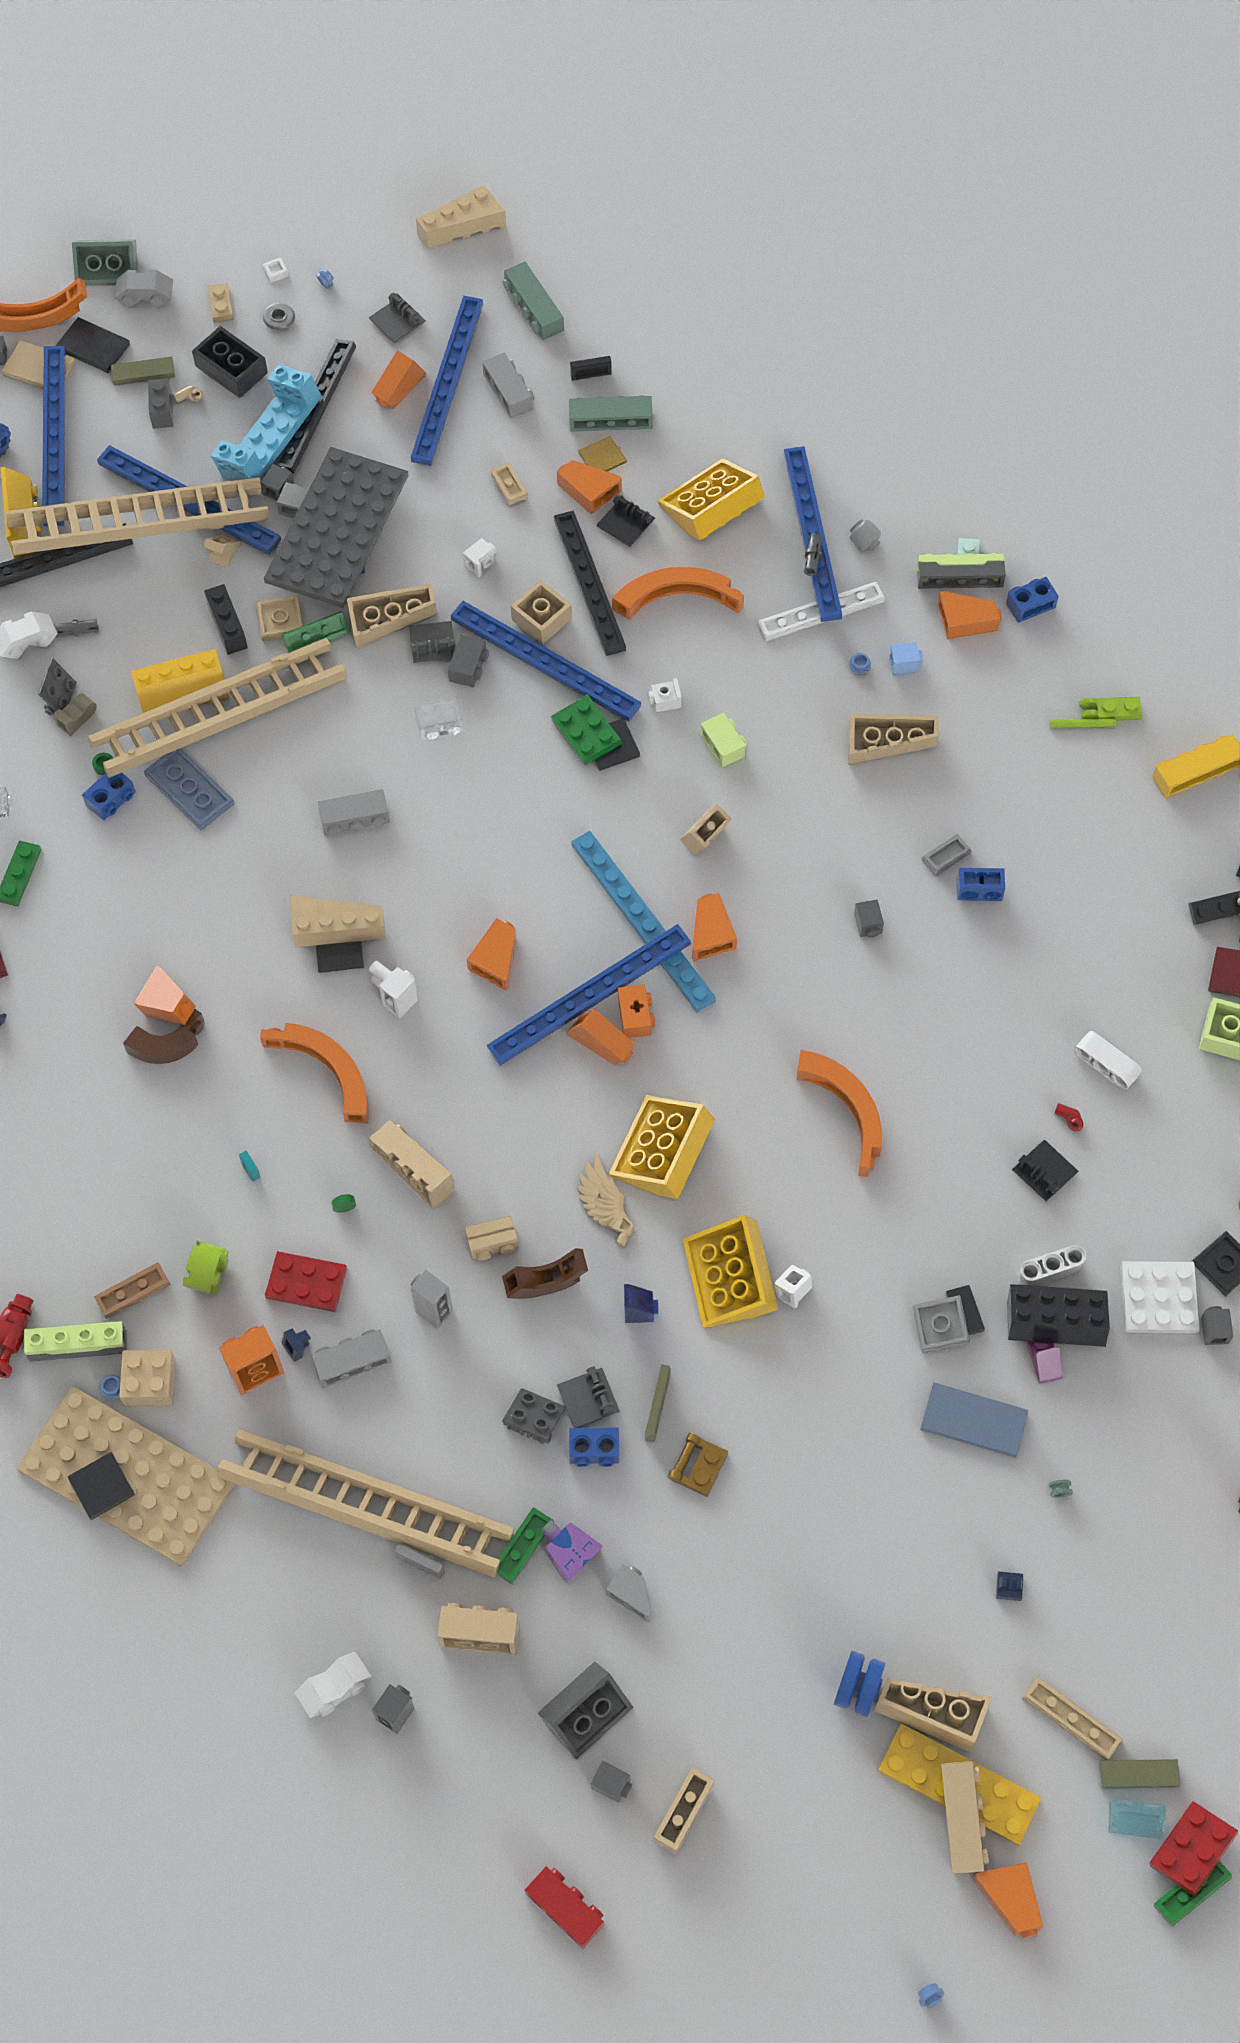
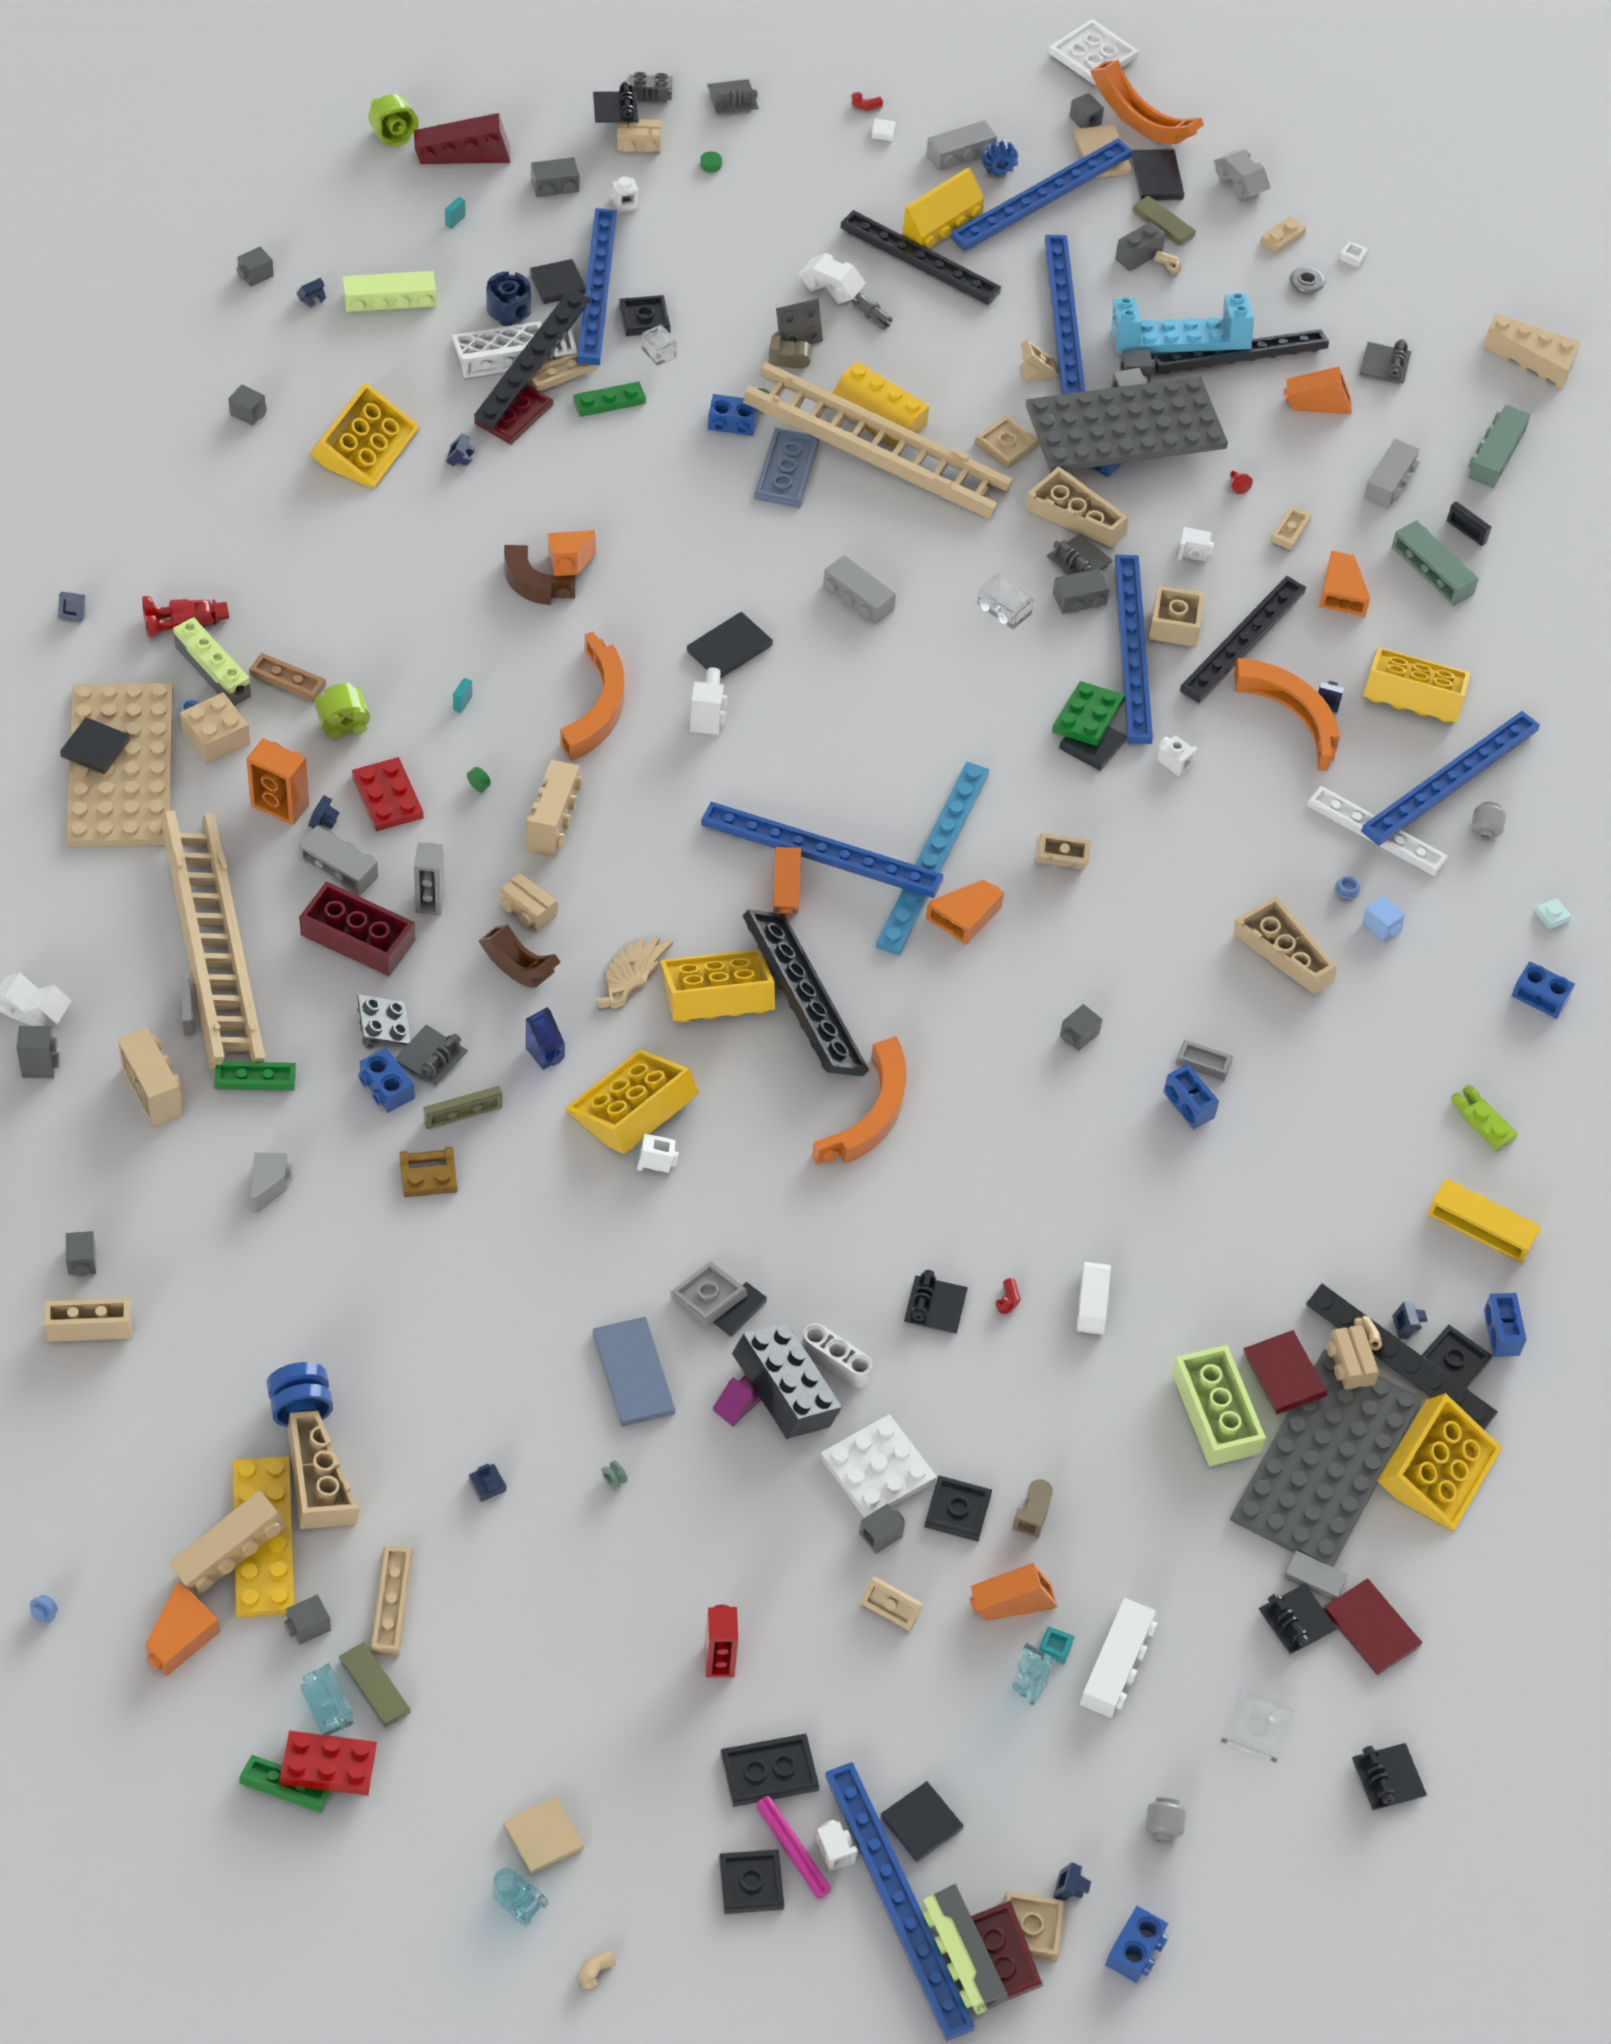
camera: 50 degrees right, 10 degrees down
(103, 259) = (1243, 129): sand green slope -> none
(135, 502) = (1015, 272): tan ladder -> none
(225, 619) = (968, 402): black brick -> none
(229, 361) = (1224, 266): black brick -> none
(325, 277) = (1377, 289): medium blue plate -> none
(327, 627) = (1021, 474): green plate -> none
(333, 921) = (736, 626): tan wedge -> none
(434, 1383) = (357, 928): none -> dark red brick
(439, 487) = (1240, 482): none -> red rock
(447, 381) = (1355, 428): blue plate -> none
(494, 954) = (807, 762): orange slope -> none
(569, 1548) = (274, 1110): medium lavender torso -> none
(585, 1710) = (134, 1200): dark grey slope -> none
(603, 455) = (1387, 583): clear yellow piece -> none
(625, 521) = (1334, 633): black hinge -> none
(632, 999) = (834, 894): orange brick -> none
(684, 558) = (1331, 694): none -> dark blue tile
(715, 1088) = (805, 993): none -> black plate
(723, 739) = (1169, 820): yellowish green brick -> none
(813, 554) = (1410, 788): dark grey pin -> none
(961, 571) = (1521, 916): dark grey piece -> none
(967, 615) = (1476, 945): orange slope -> none
(1058, 1792) = (307, 1619): none -> dark grey brick
(1082, 723) = (1447, 1102): lime bar -> none

